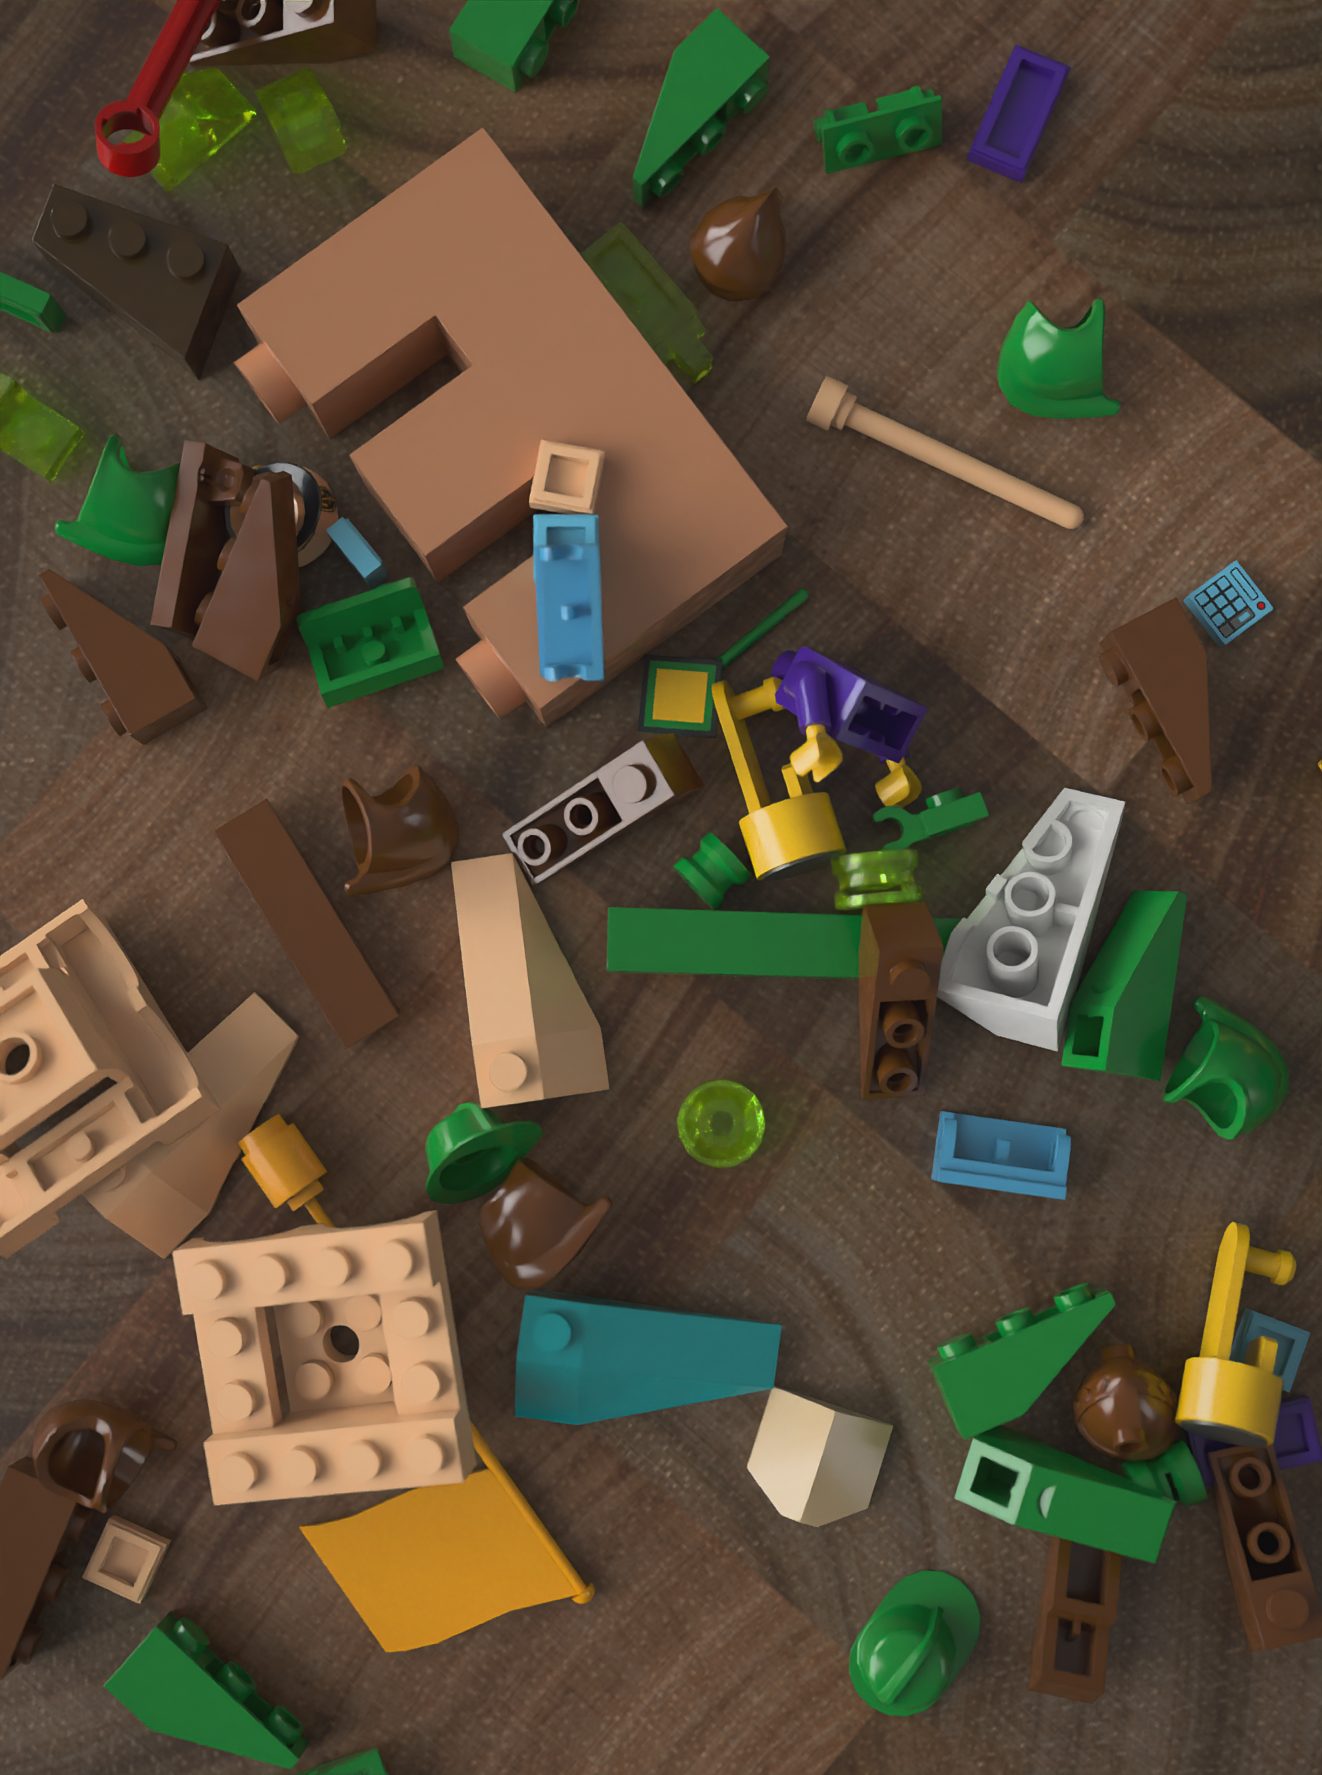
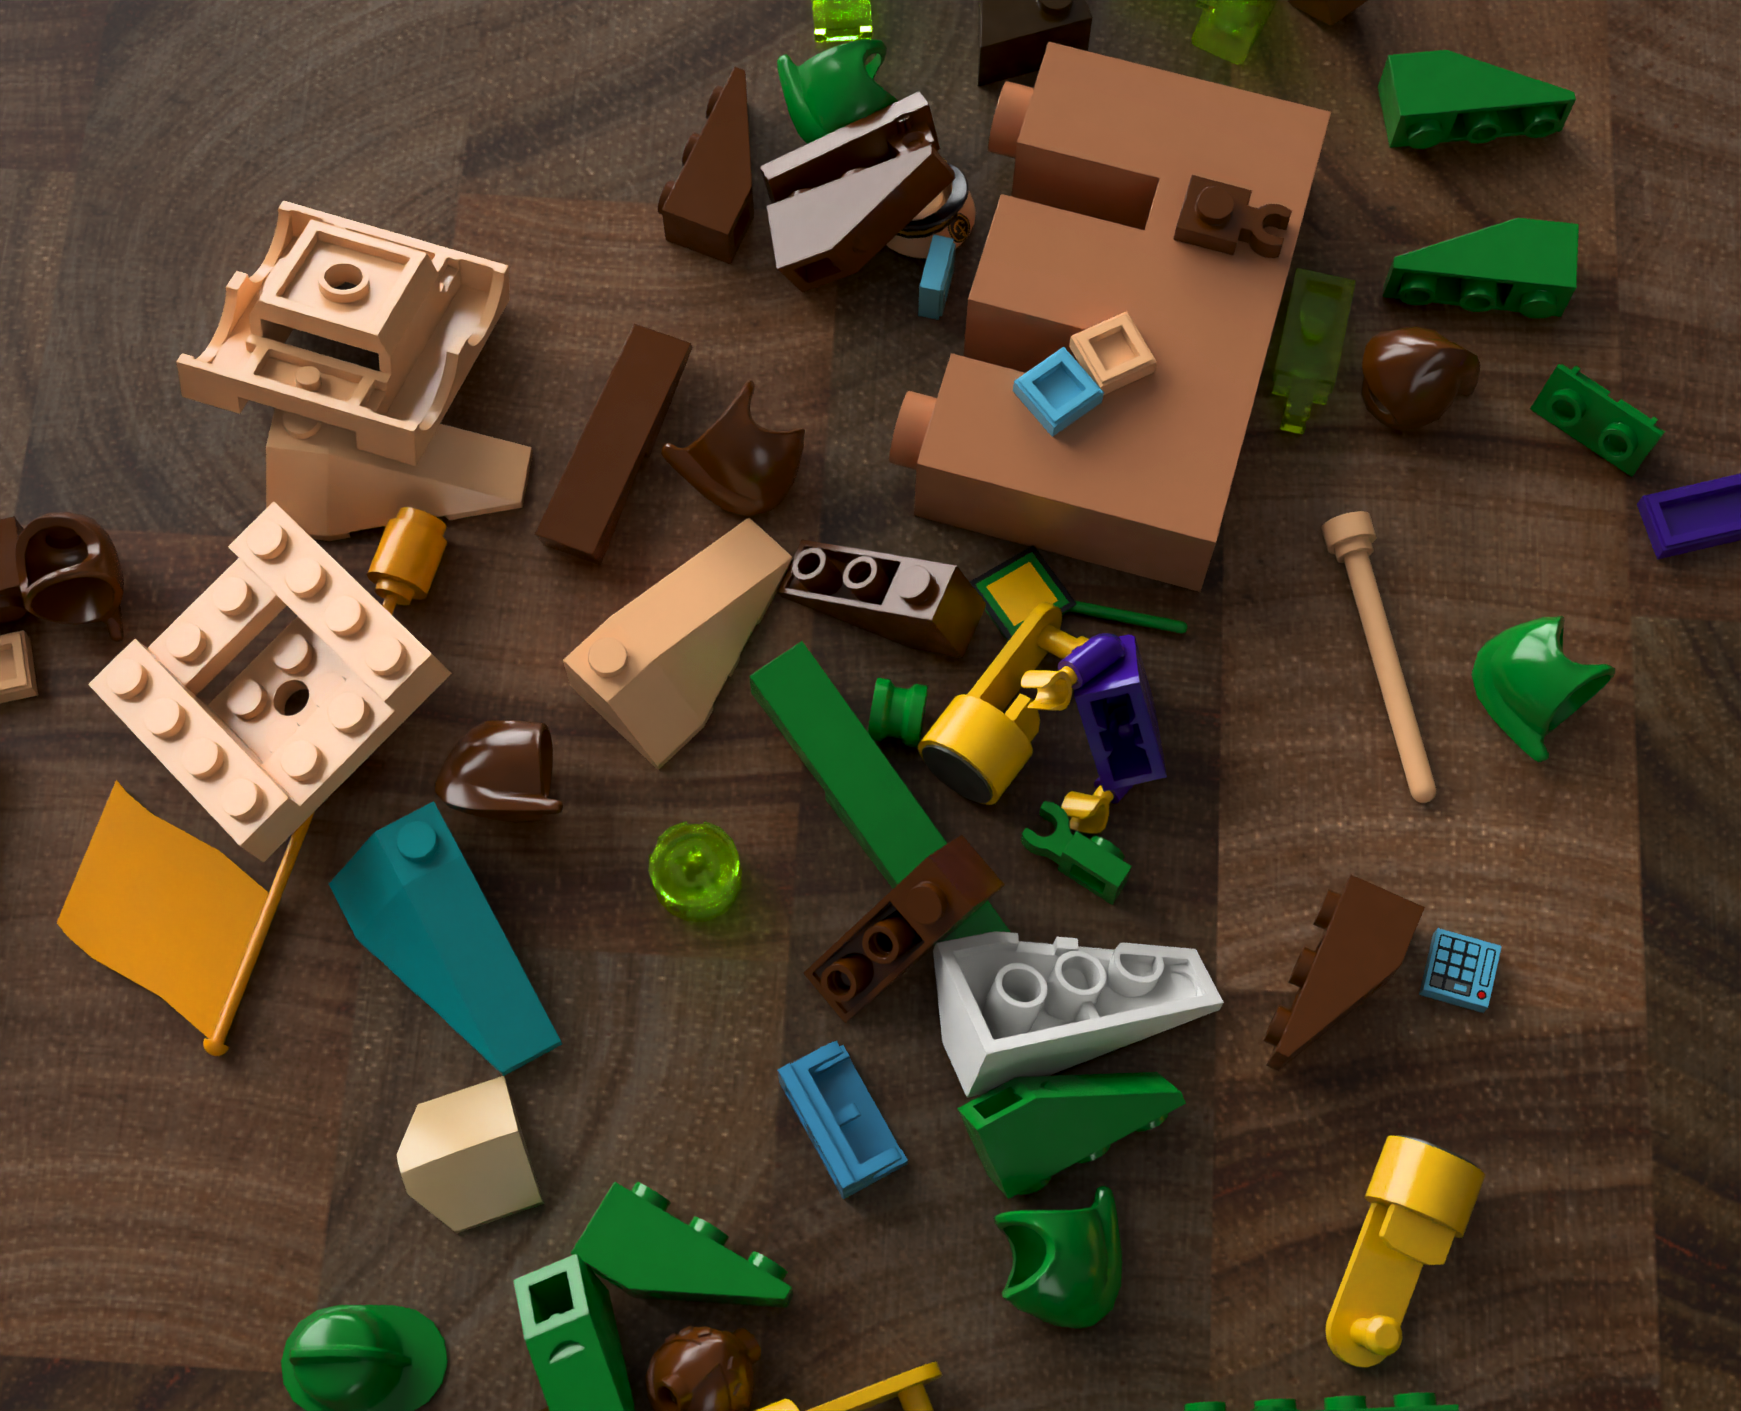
camera: 50 degrees right, 15 degrees down
(370, 641) = (876, 331): green bracket -> none
(474, 1152) = (522, 684): green piece -> none
(512, 296) = (1219, 216): none -> reddish brown plate
(569, 611) = (1012, 422): dark azure hinge -> none
(876, 872) = (997, 837): clear neon green wheel -> none

